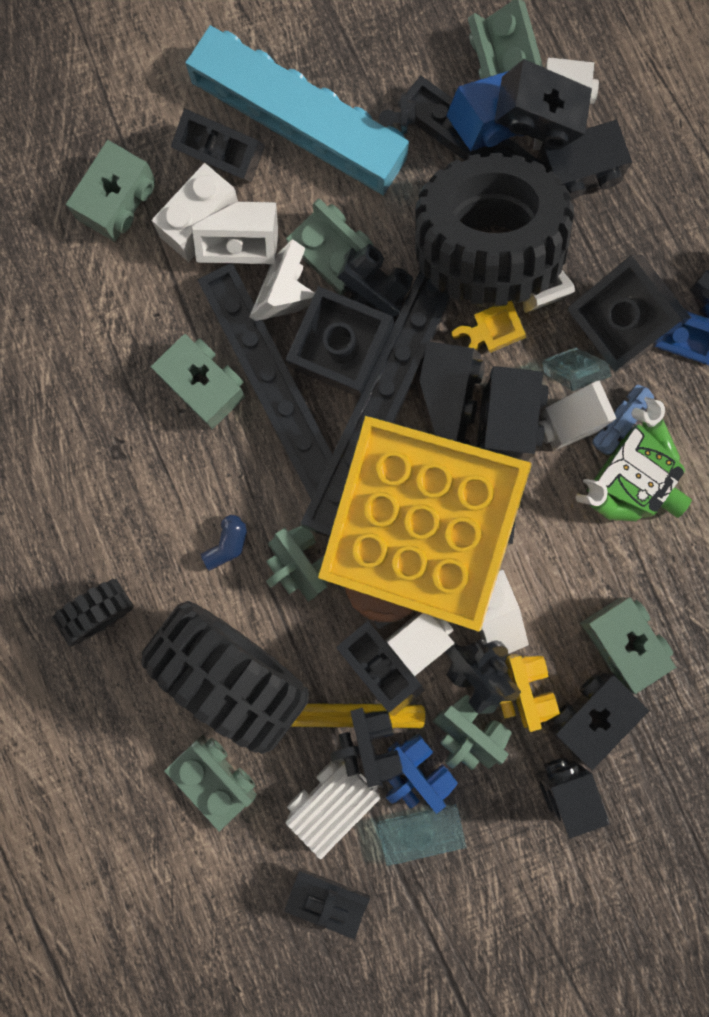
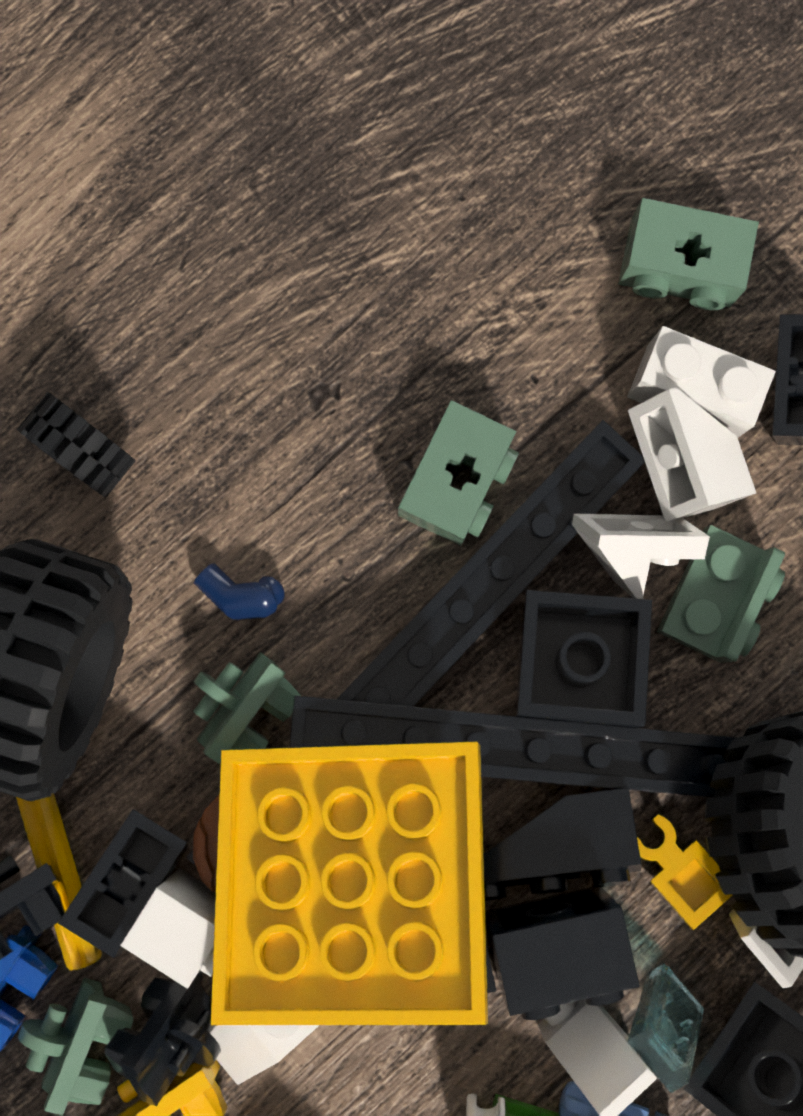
camera: 65 degrees right, 0 degrees up
(371, 284) = (685, 673): black hips -> none

